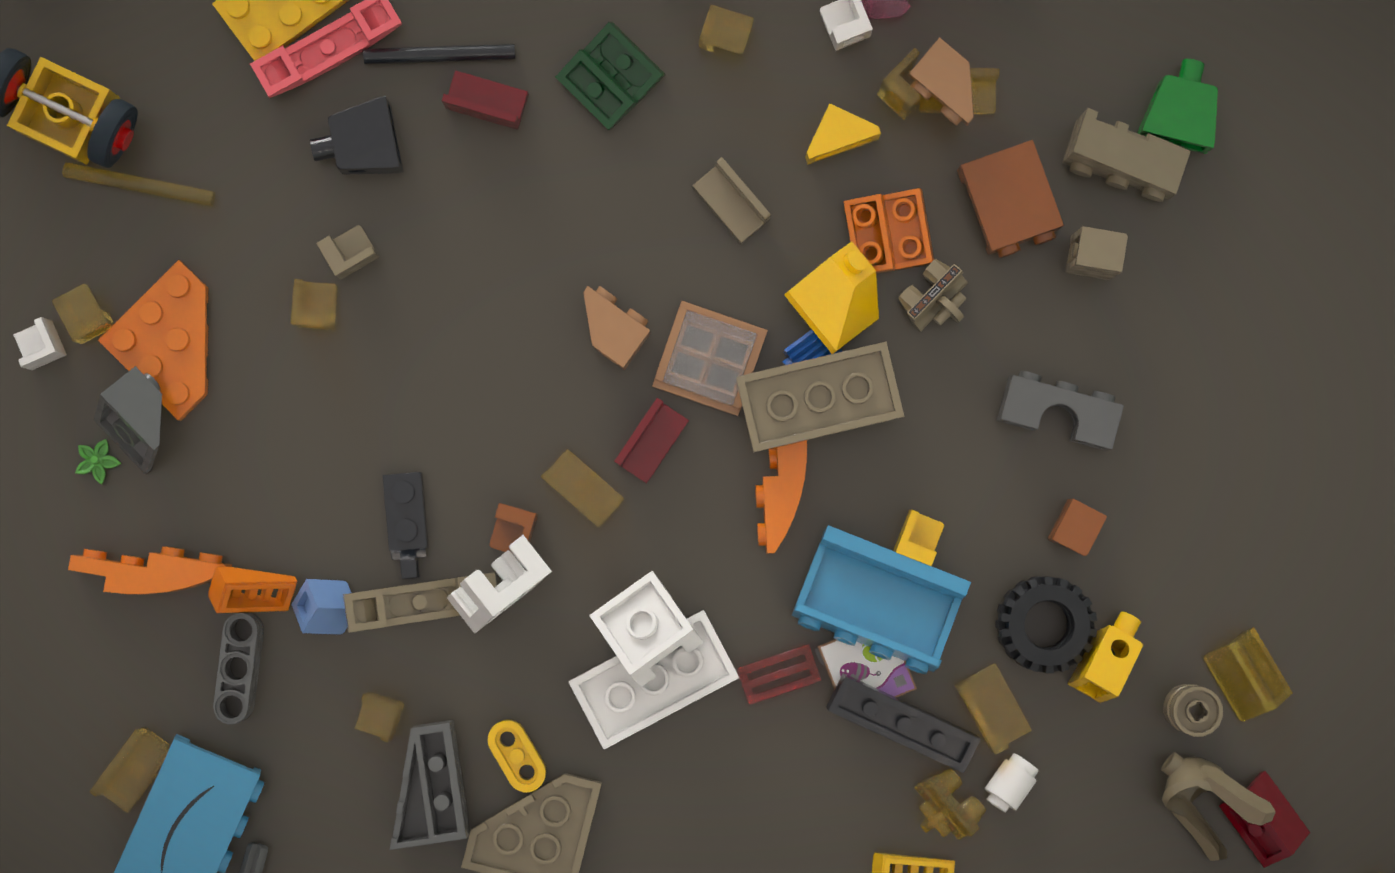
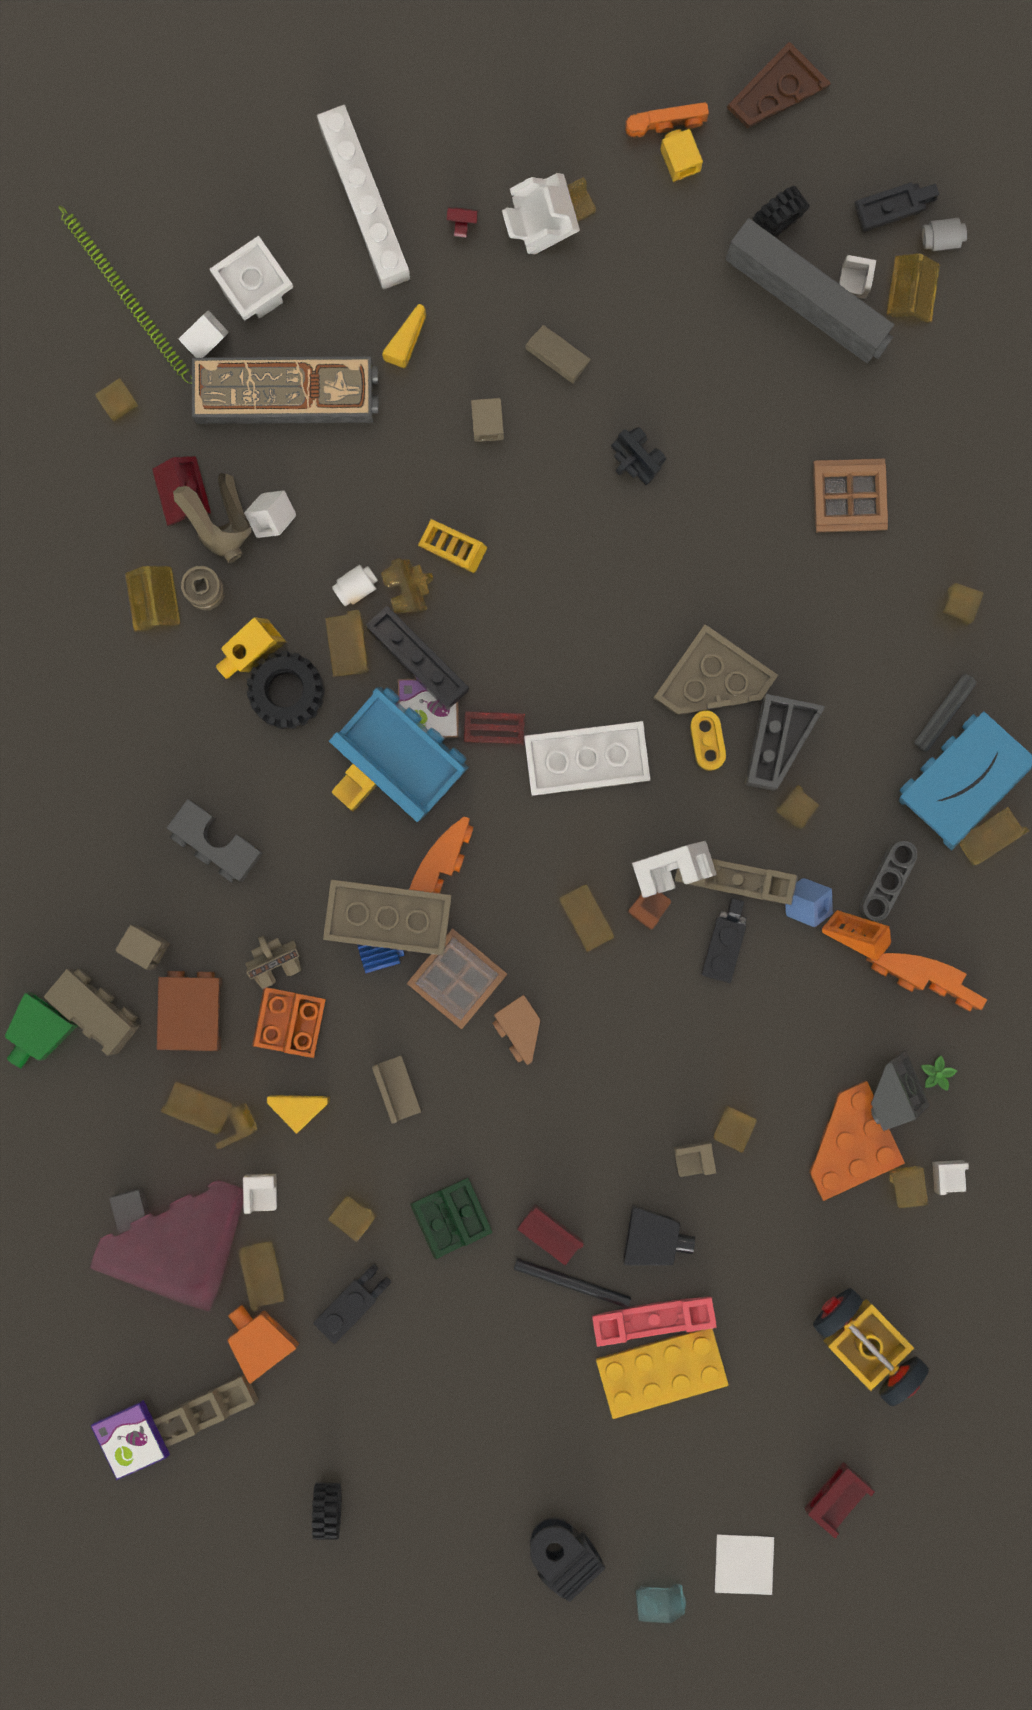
camera: 160 degrees left, 0 degrees up
(138, 184) = (832, 1269): clear yellow bar -> none
(644, 627) = (579, 798): white panel -> none
(651, 441) = (523, 933): dark red panel -> none
(838, 297) = (345, 986): yellow slope -> none
(947, 79) = (202, 1116): medium nougat slope -> none
(1077, 527) = (235, 752): dark orange panel -> none
(1146, 831) = (270, 514): none -> white panel

